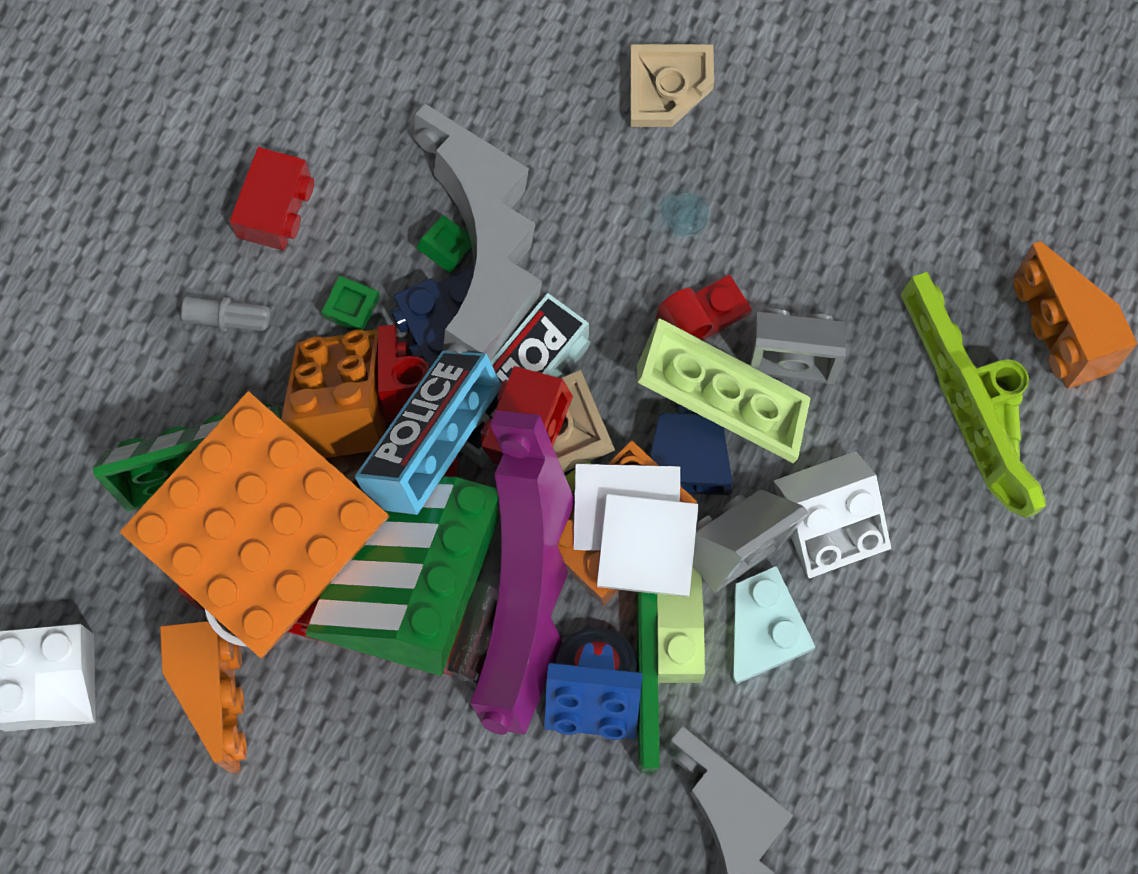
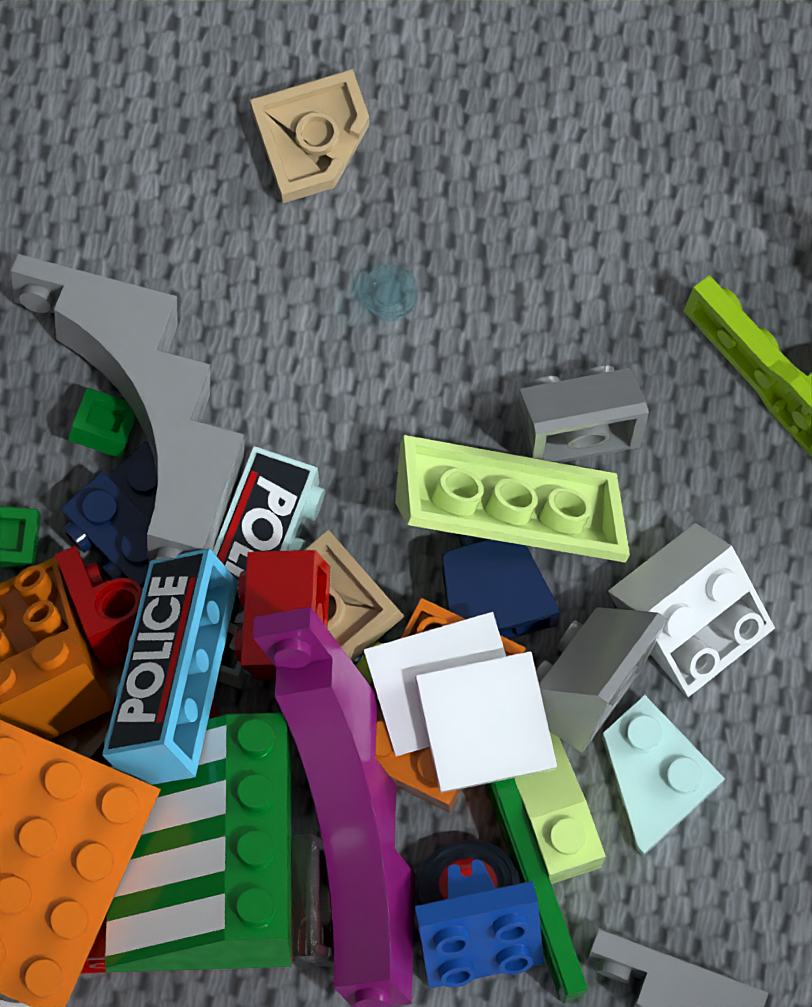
camera: 20 degrees left, 0 degrees up
(706, 310) = (454, 405): red plate -> none

